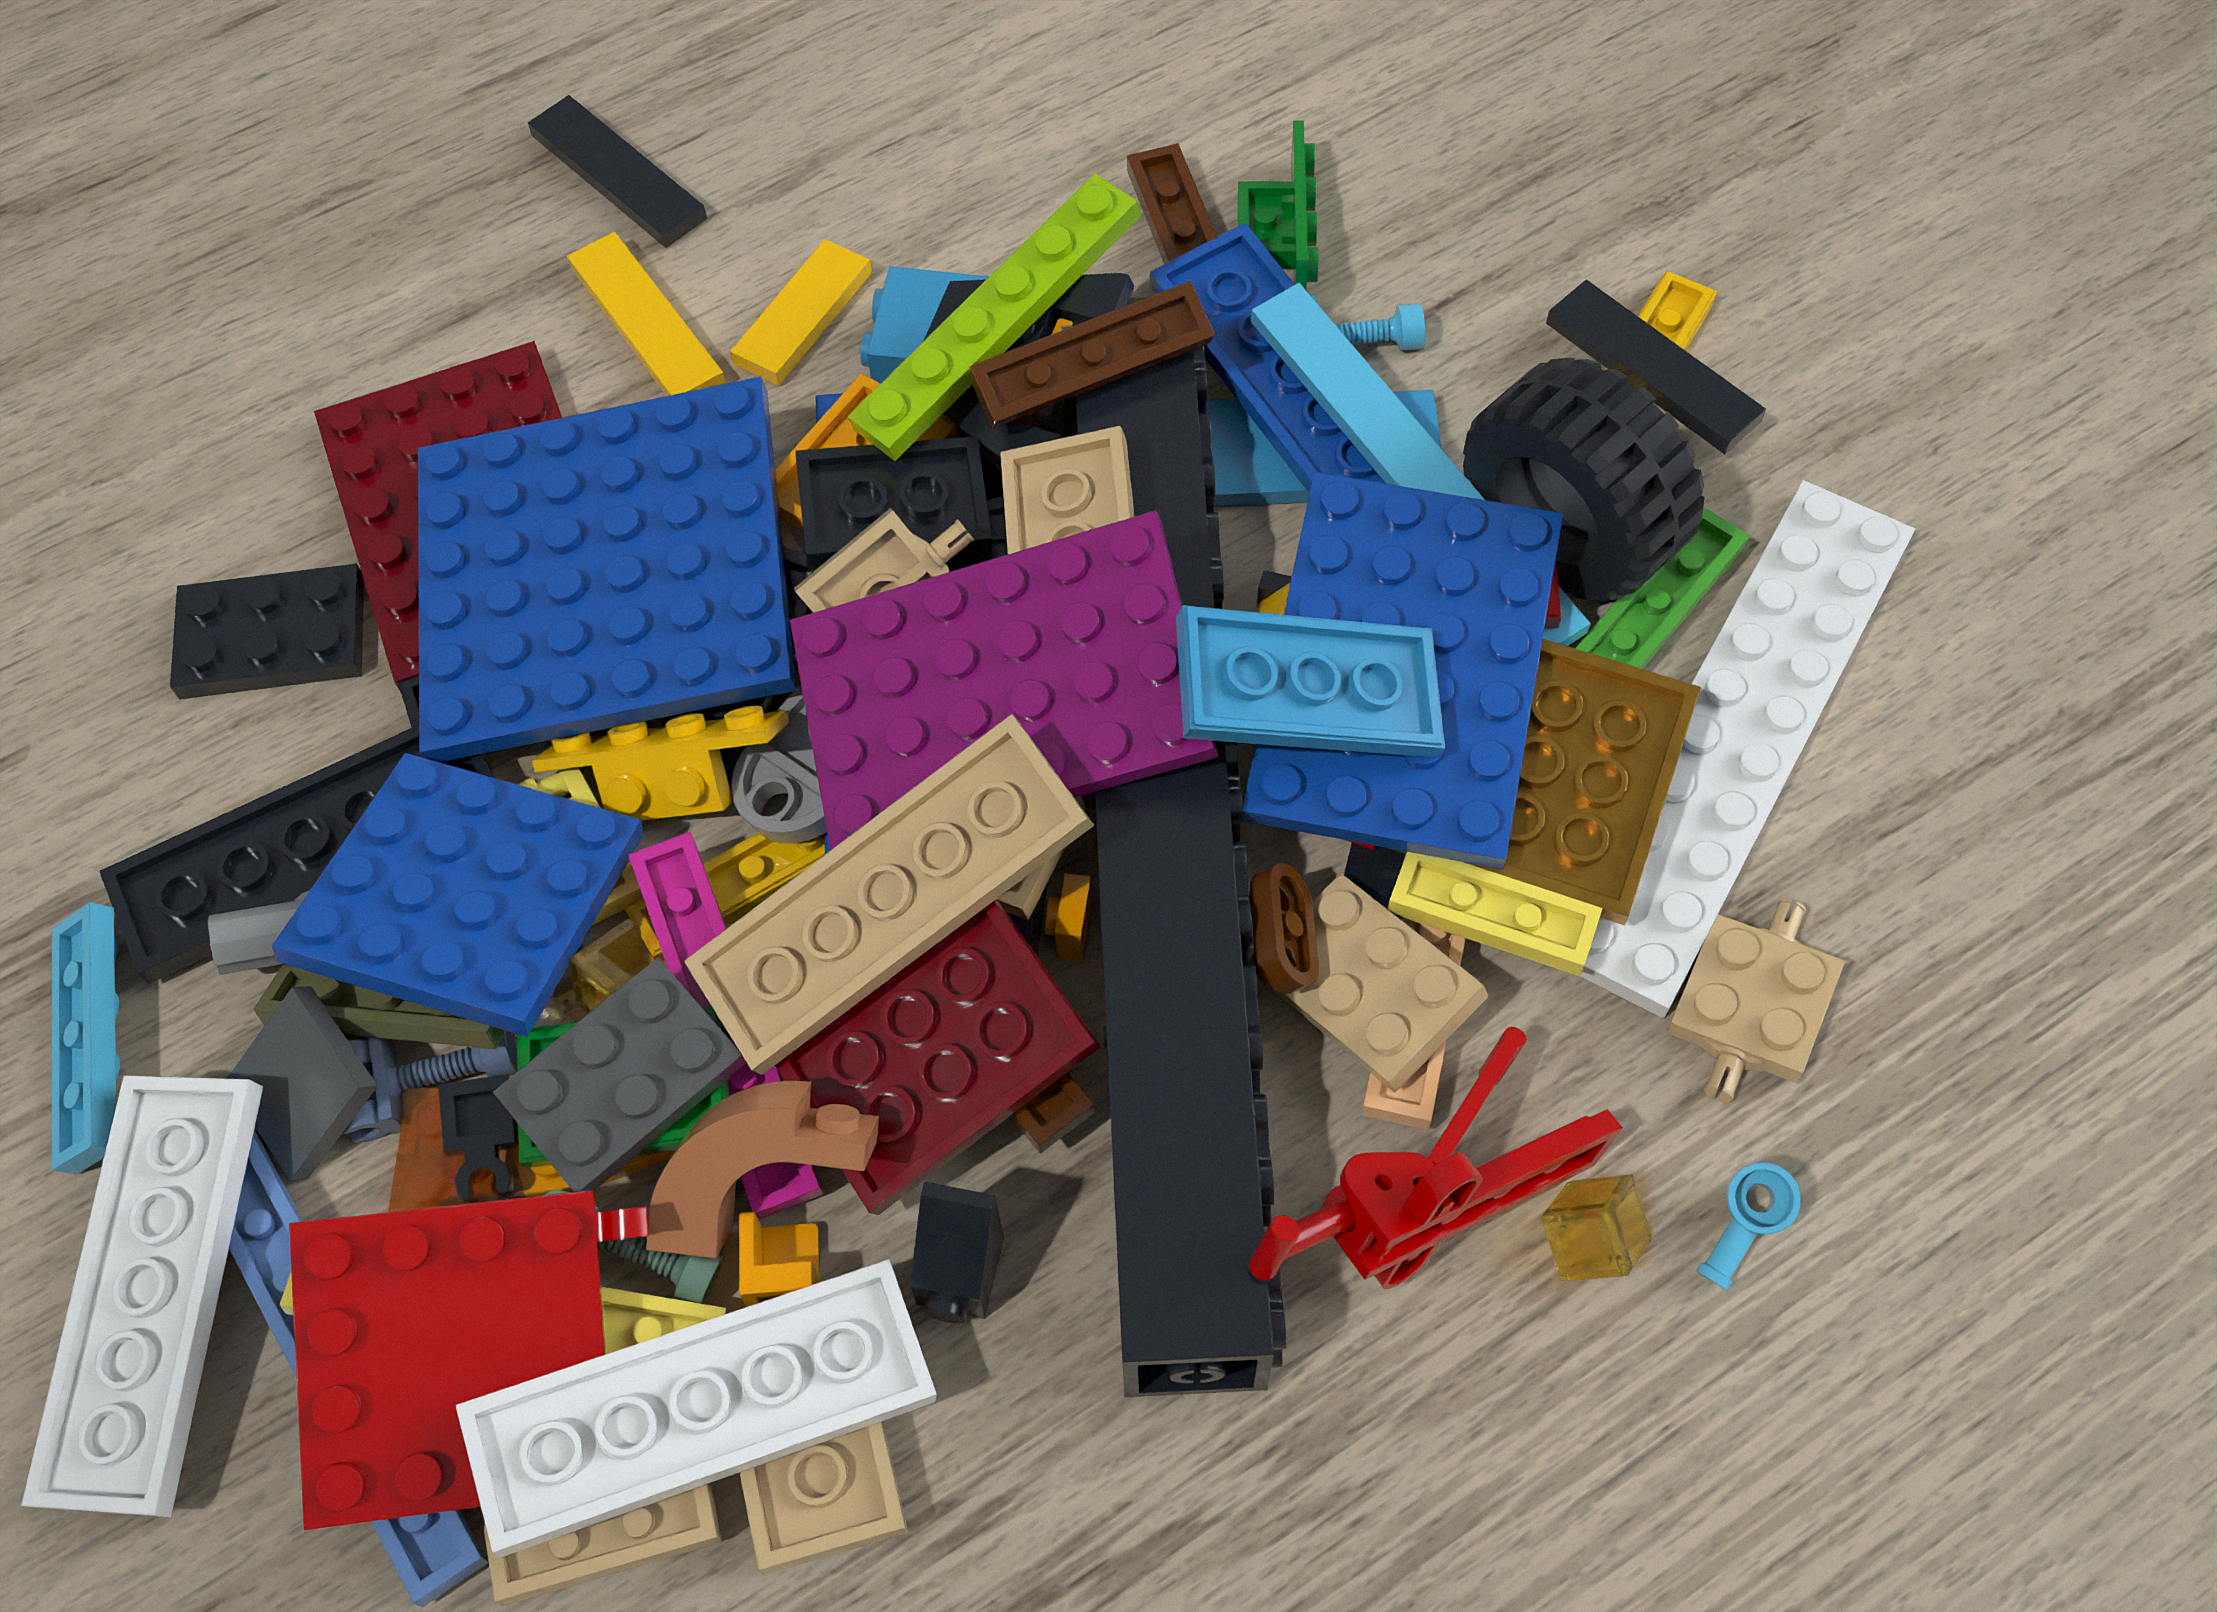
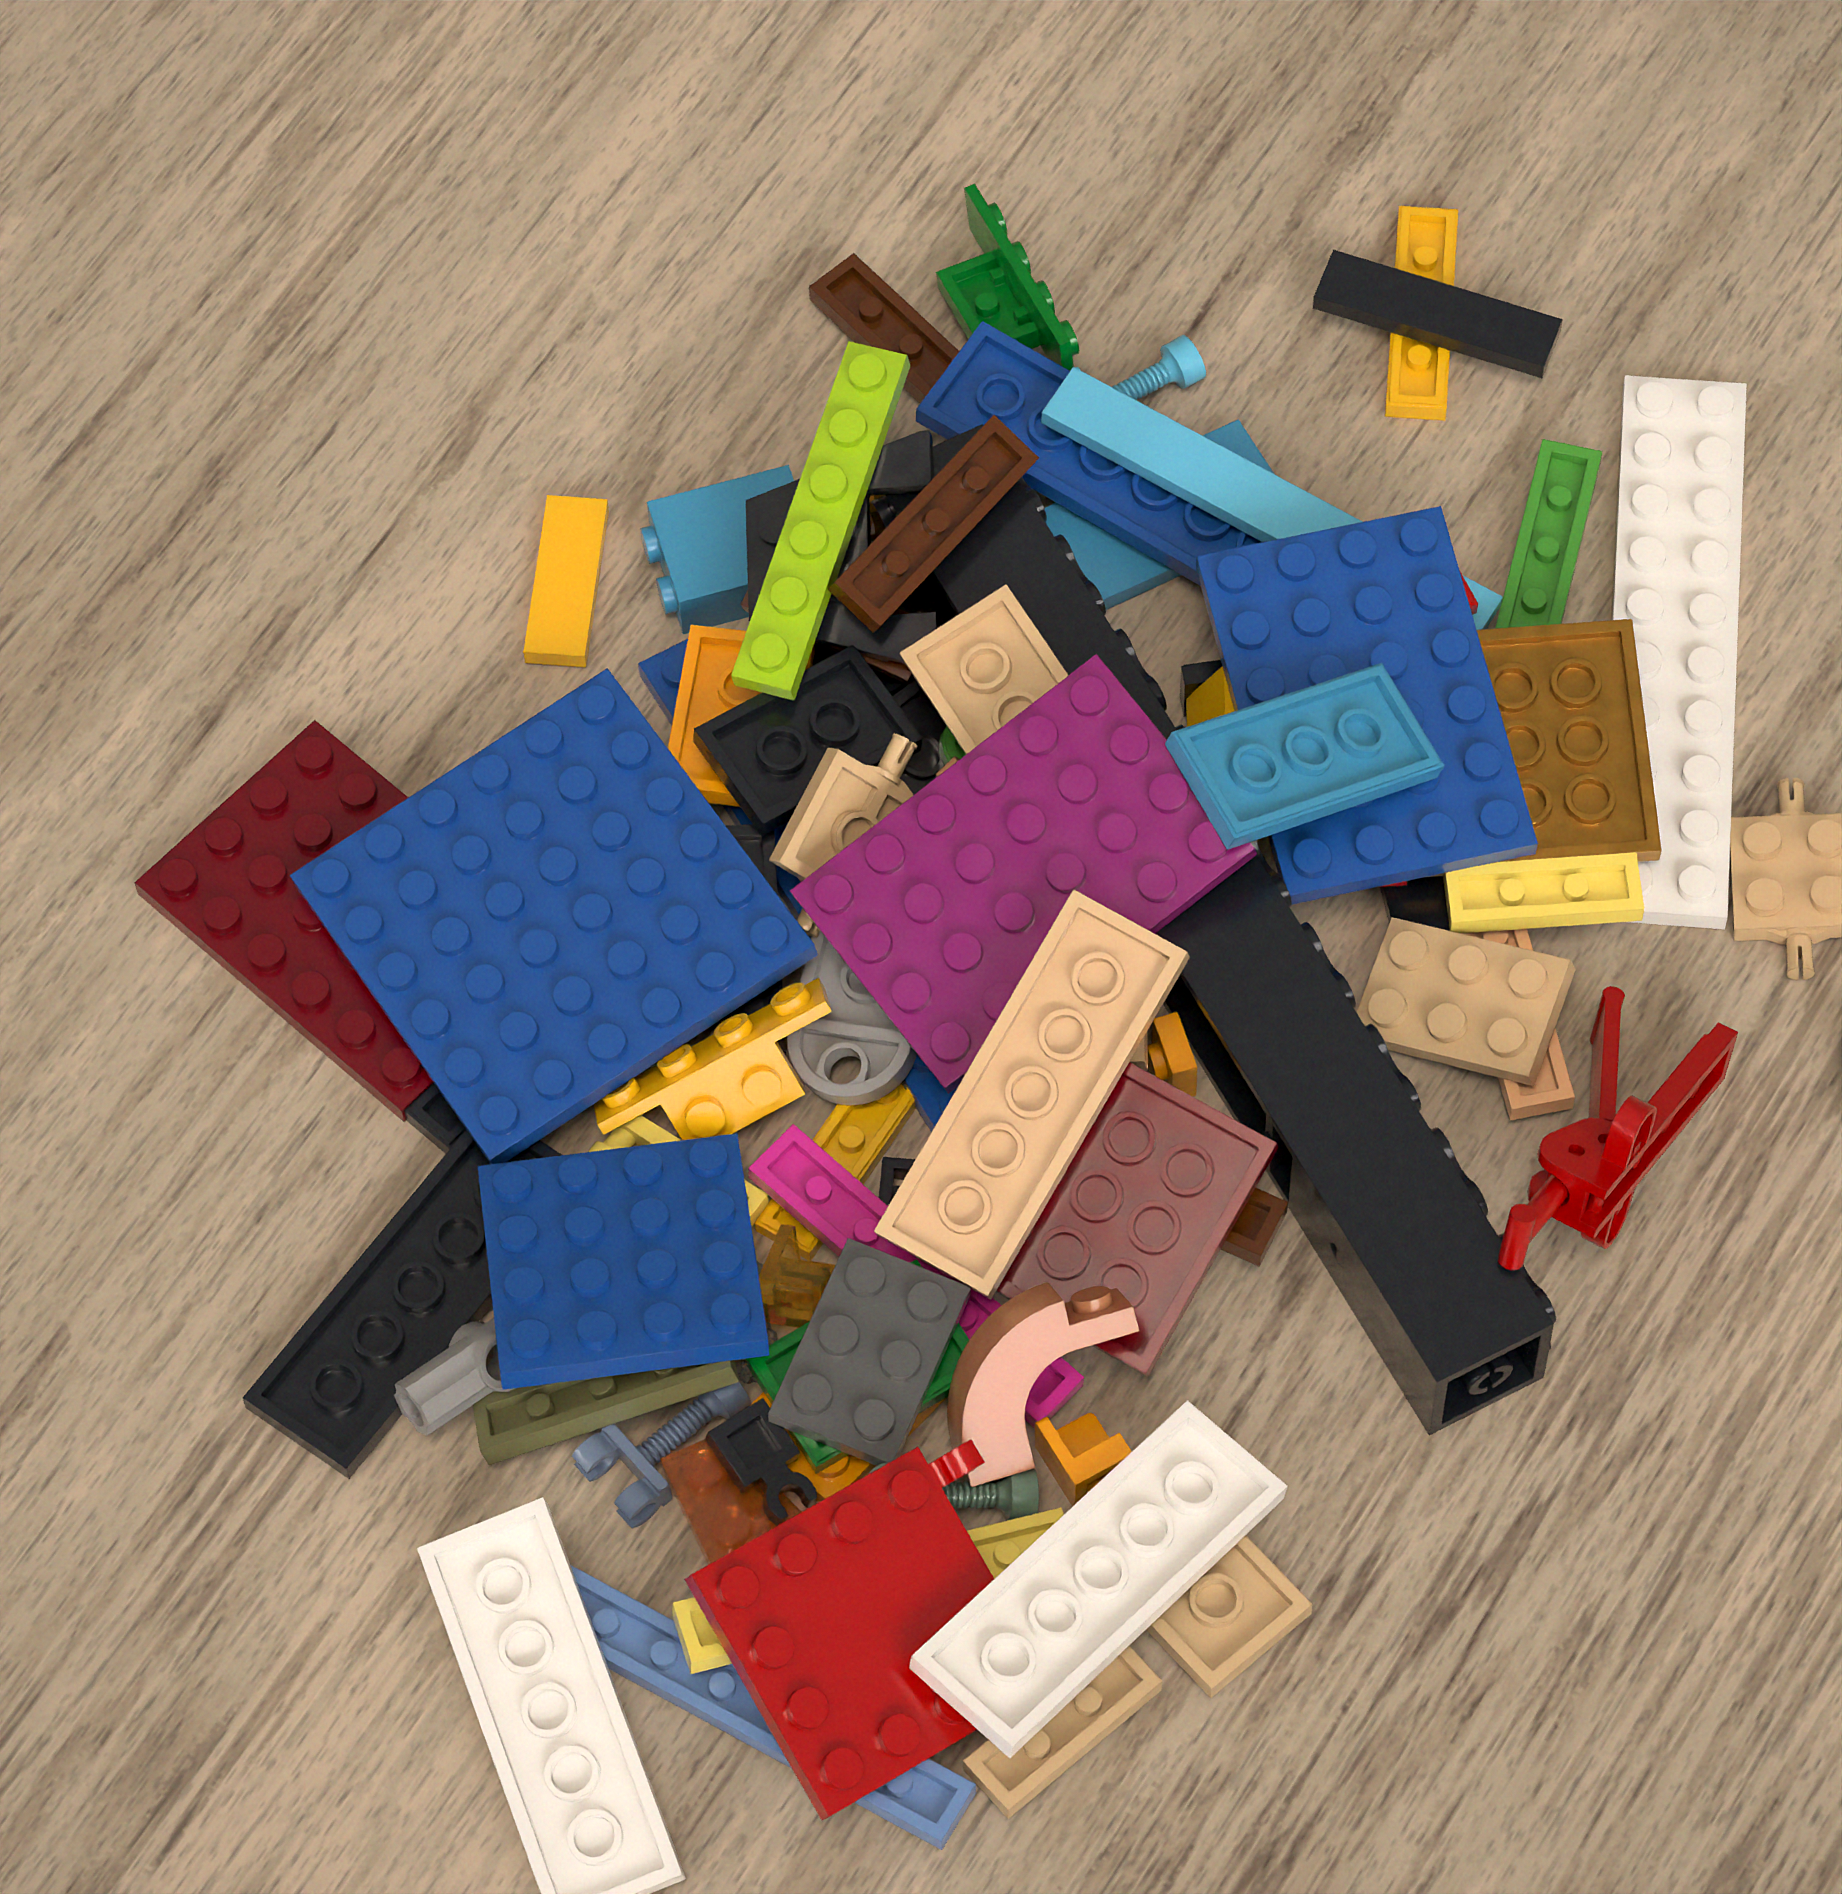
camera: 25 degrees left, 0 degrees up
(83, 1037) = (330, 1544): medium azure plate -> none
(268, 631) = (235, 1116): black plate -> none
(308, 1082) = (583, 1477): dark grey tile -> none
(617, 171) = (275, 503): black tile -> none
(644, 317) = (410, 652): yellow tile -> none
(955, 1252) = (1237, 1371): black slope -> none
(1283, 929) = (1375, 985): reddish brown plate -> none
(1597, 1228) = (1752, 1126): clear yellow panel -> none
(1603, 458) = (1445, 438): black tyre -> none

